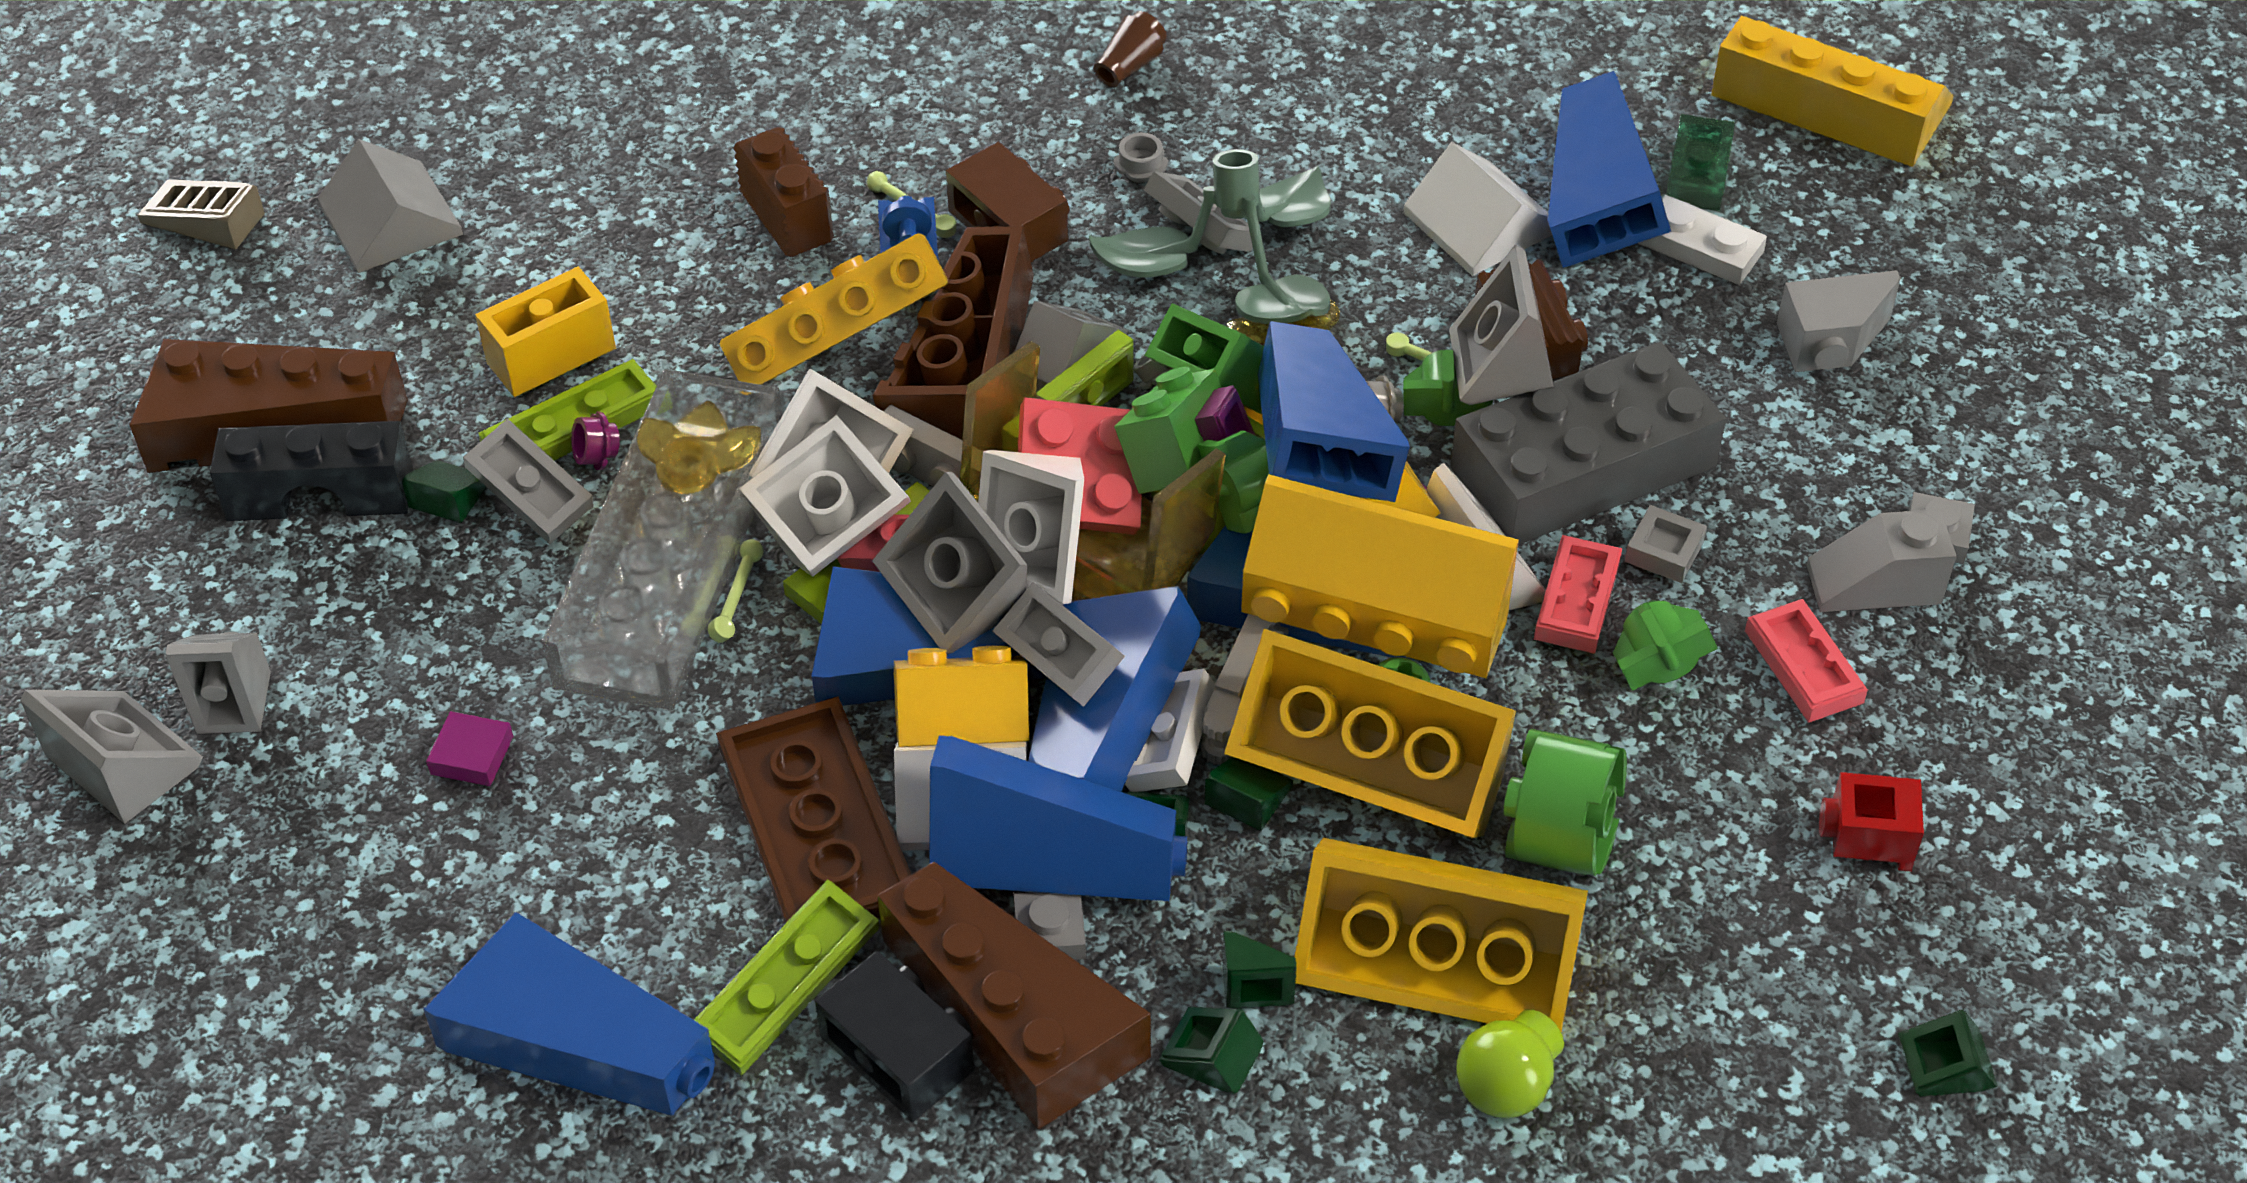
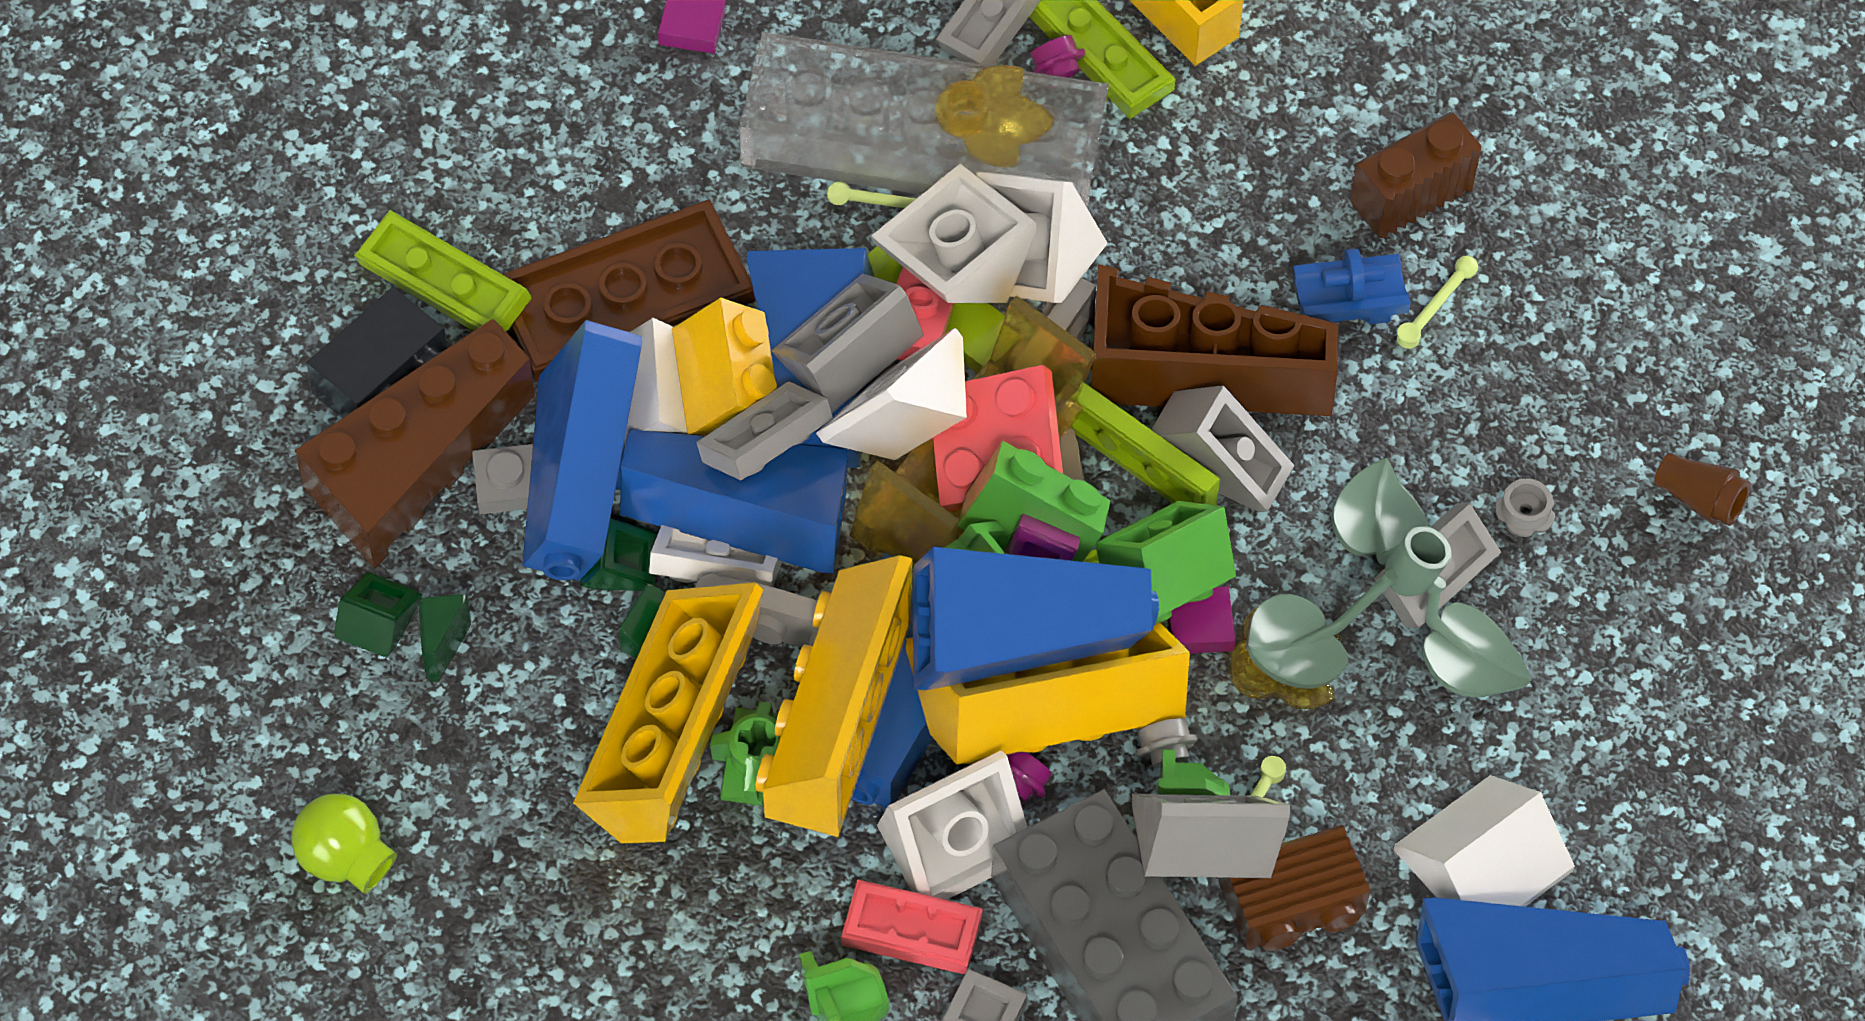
camera: 85 degrees right, 10 degrees up
(569, 1021) = (397, 125): blue slope -> none
(834, 311) = (1226, 224): yellow bracket -> none
(1004, 191) = (1425, 381): reddish brown brick -> none
(1437, 934) = (485, 787): yellow slope -> none
(1565, 803) = (616, 886): bright green brick -> none

